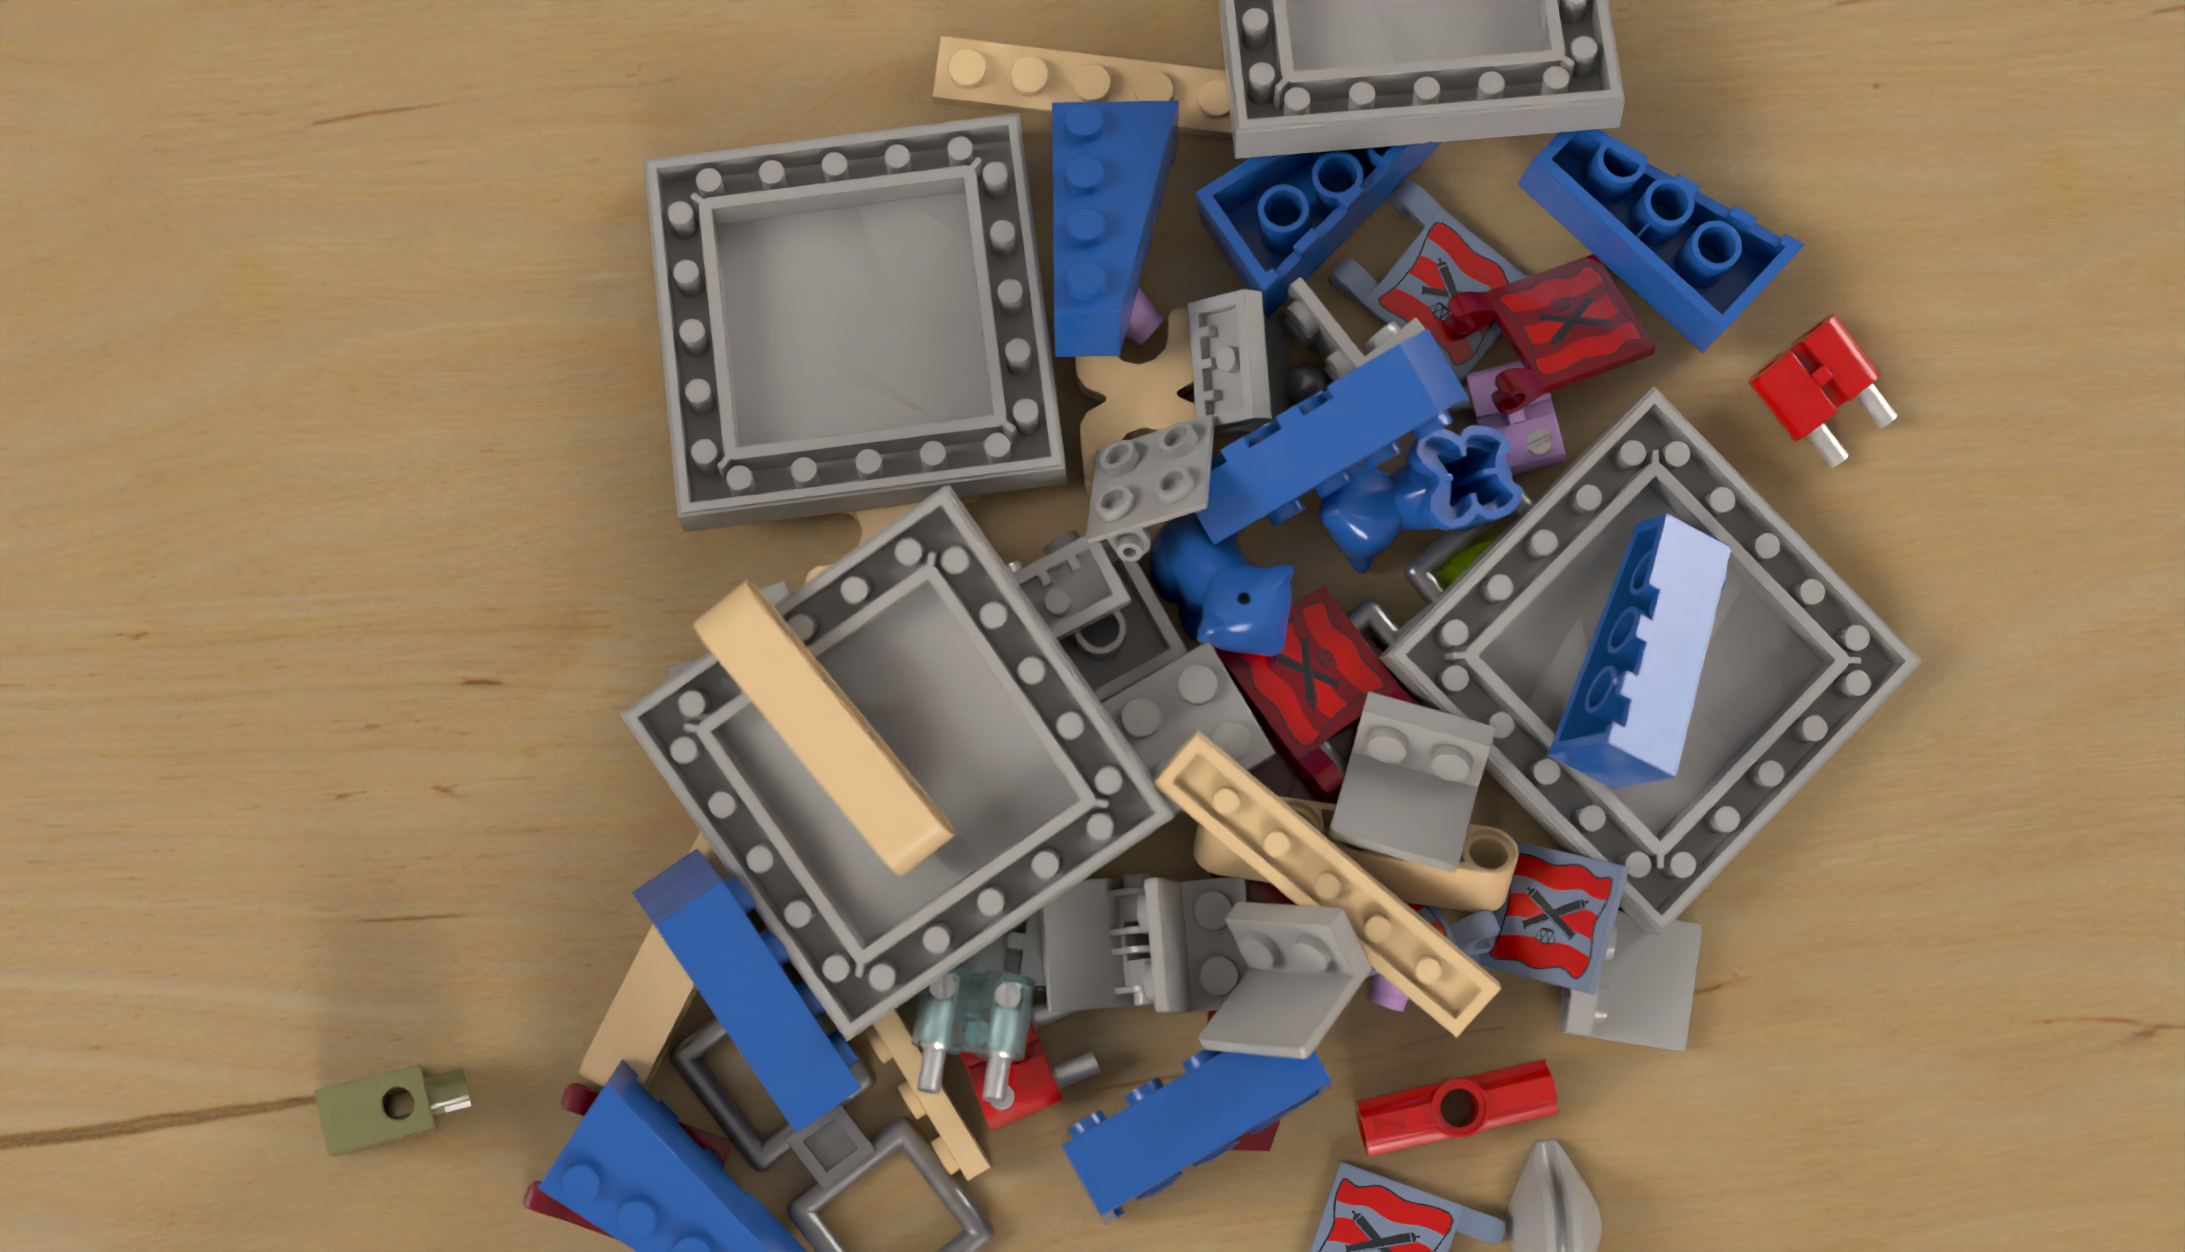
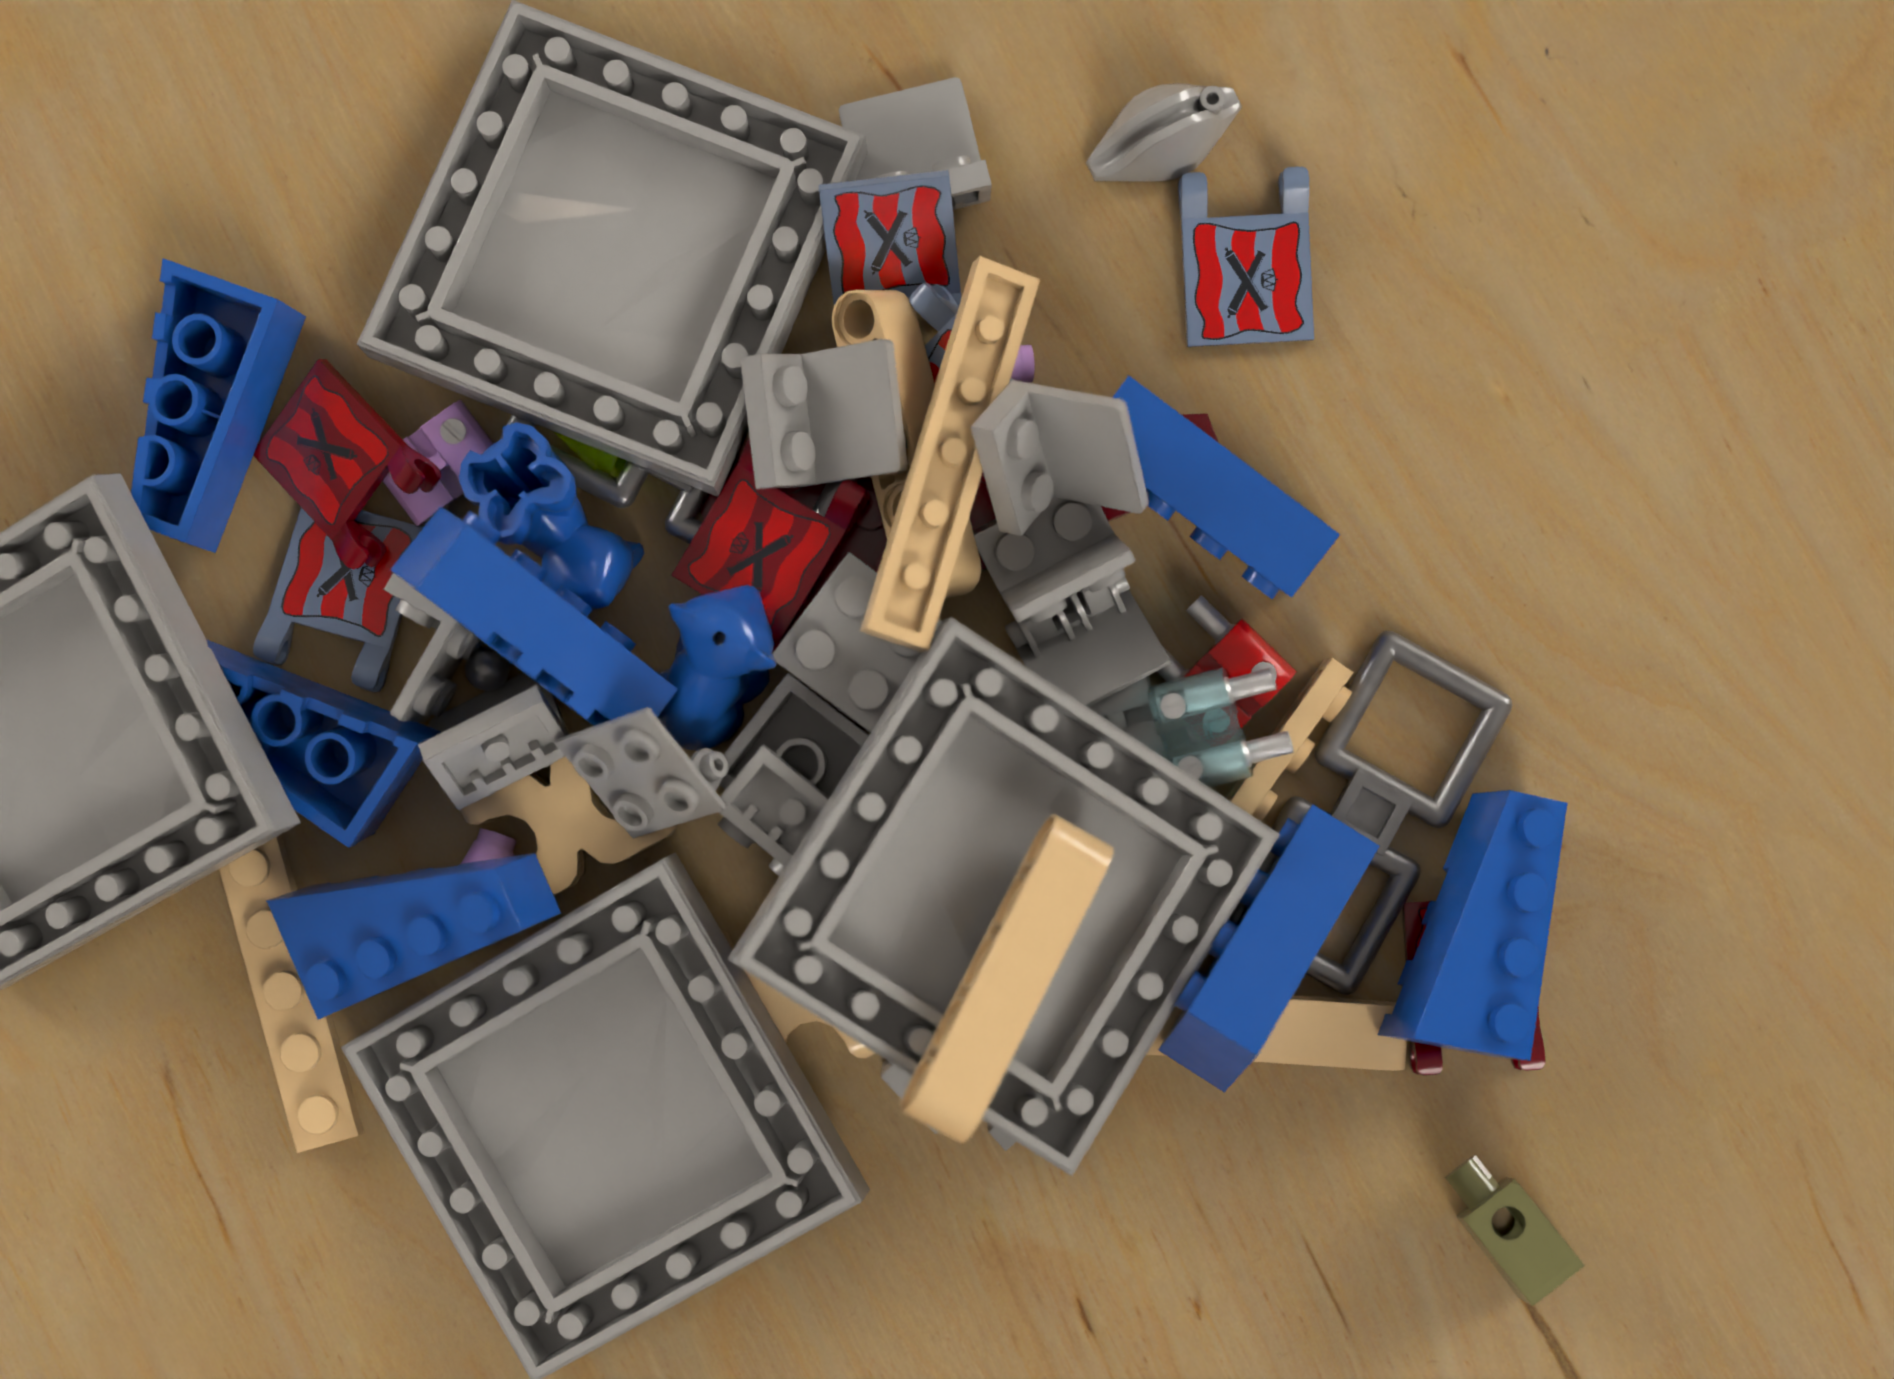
camera: 115 degrees left, 5 degrees up
(1496, 1099) = (1076, 227): red piece -> none
(1645, 657) = (617, 246): wedge -> none
(1815, 379) = (287, 202): red piece -> none

